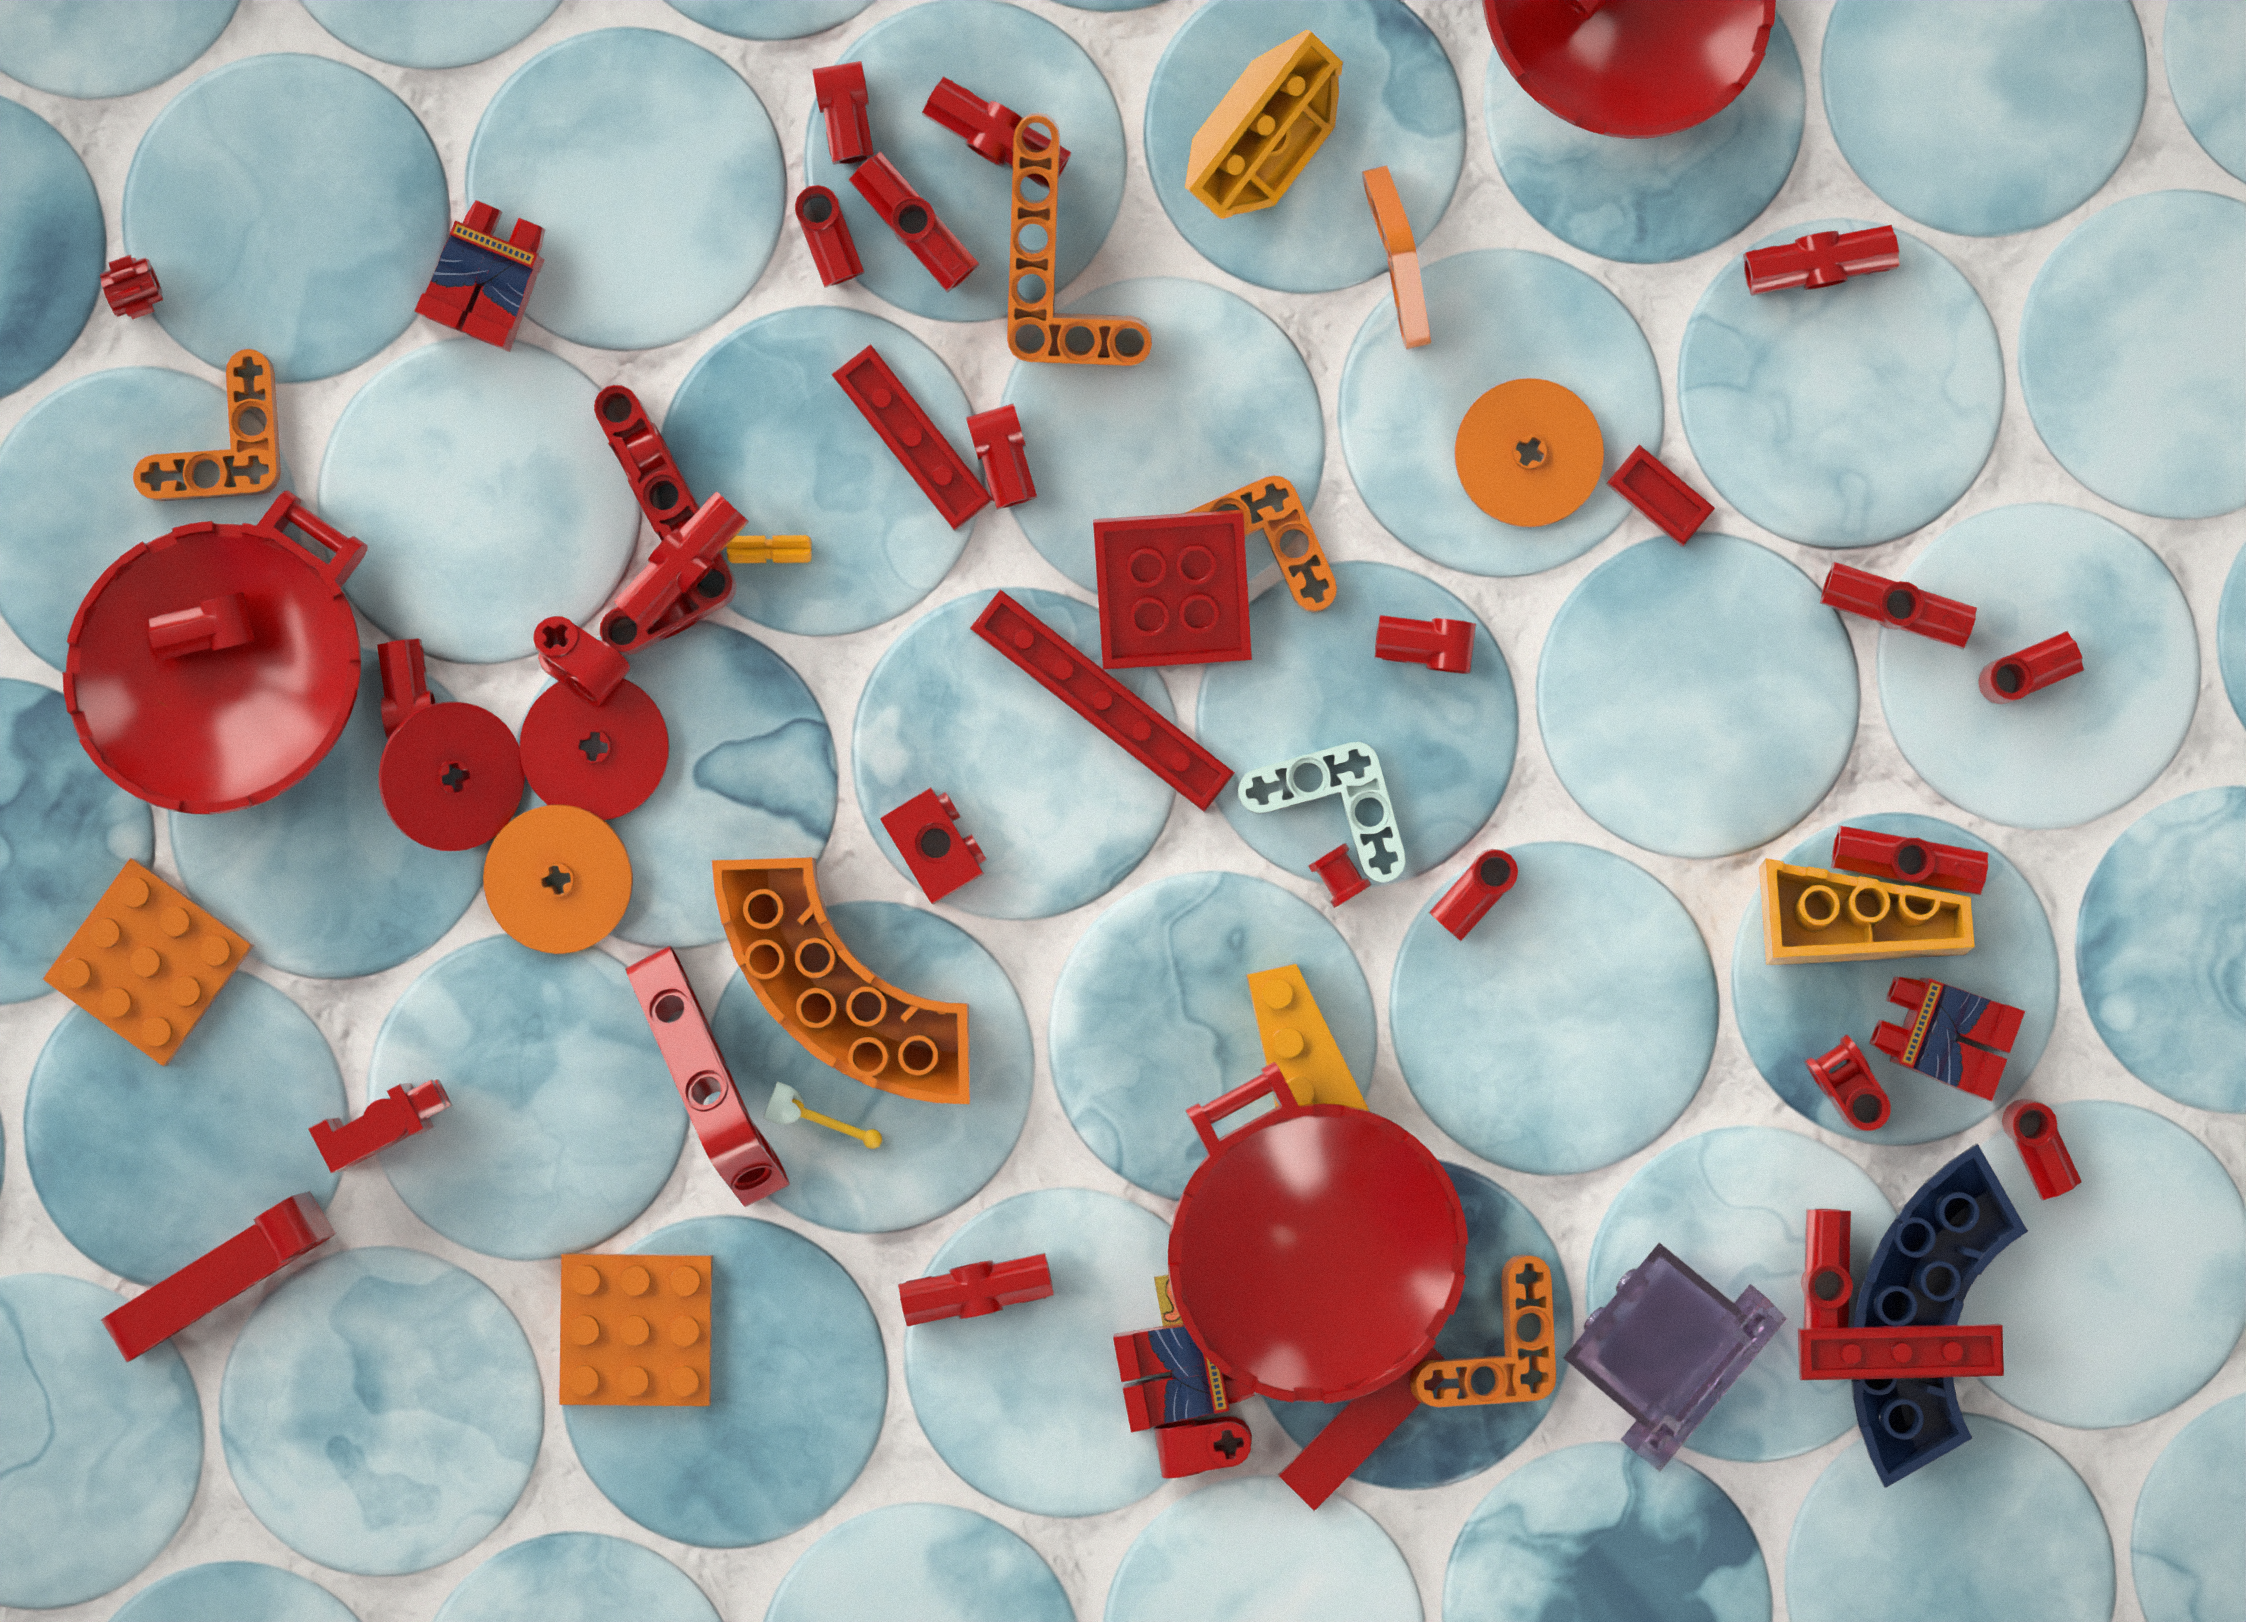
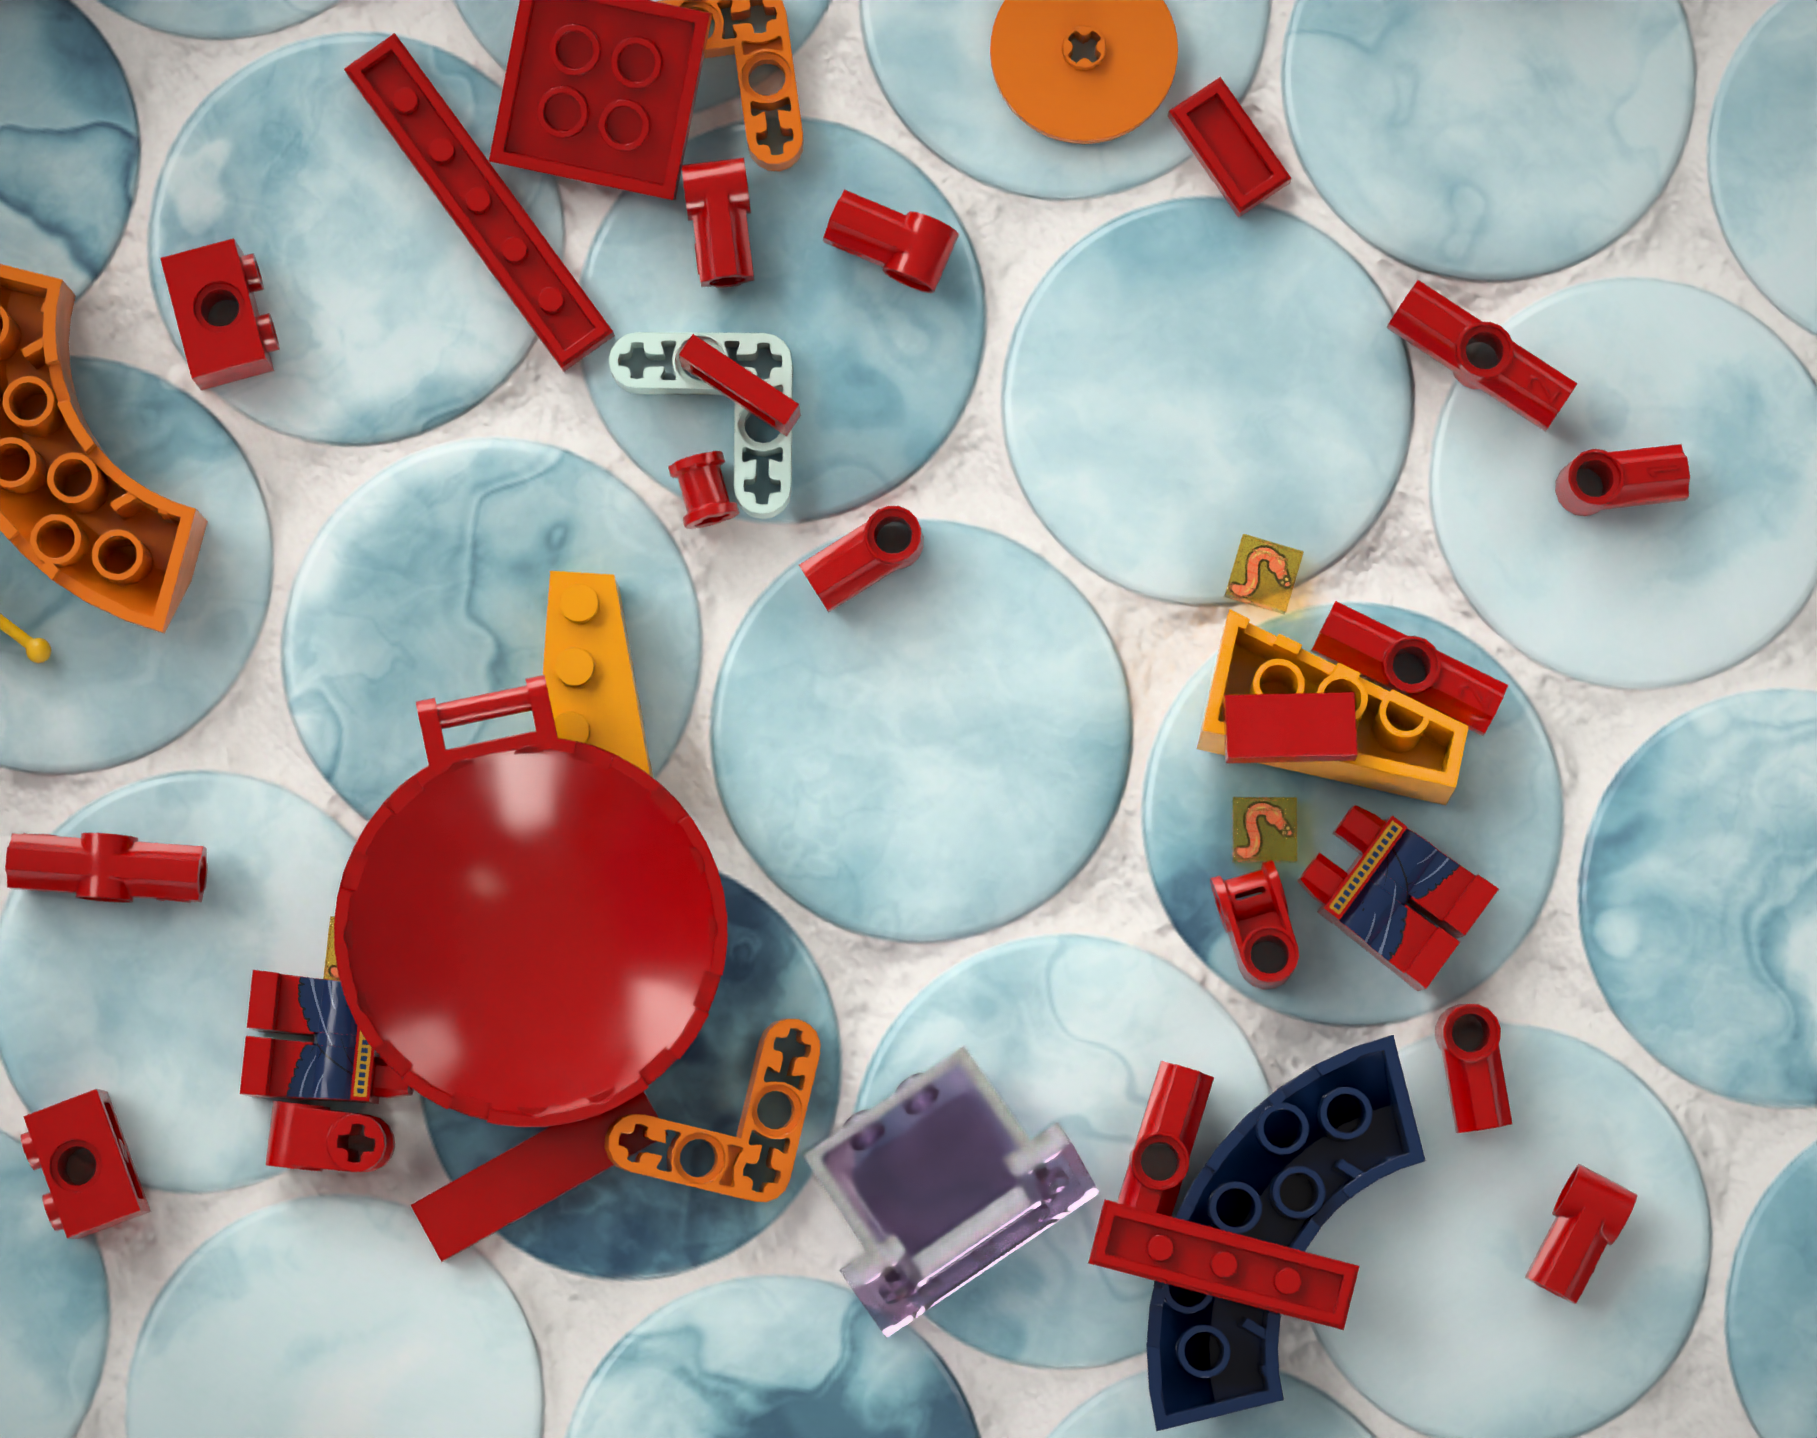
camera: 15 degrees right, 5 degrees down
(1021, 1486) = (112, 1192): none -> red brick
(1287, 654) = (718, 206): none -> red piece
(1347, 791) = (739, 385): none -> red tile
(1778, 817) = (1263, 574): none -> clear yellow tile
(1833, 1011) = (1264, 829): none -> clear yellow tile
(1839, 938) = (1290, 727): none -> red tile
(2155, 1235) = (1587, 1218): none -> red piece

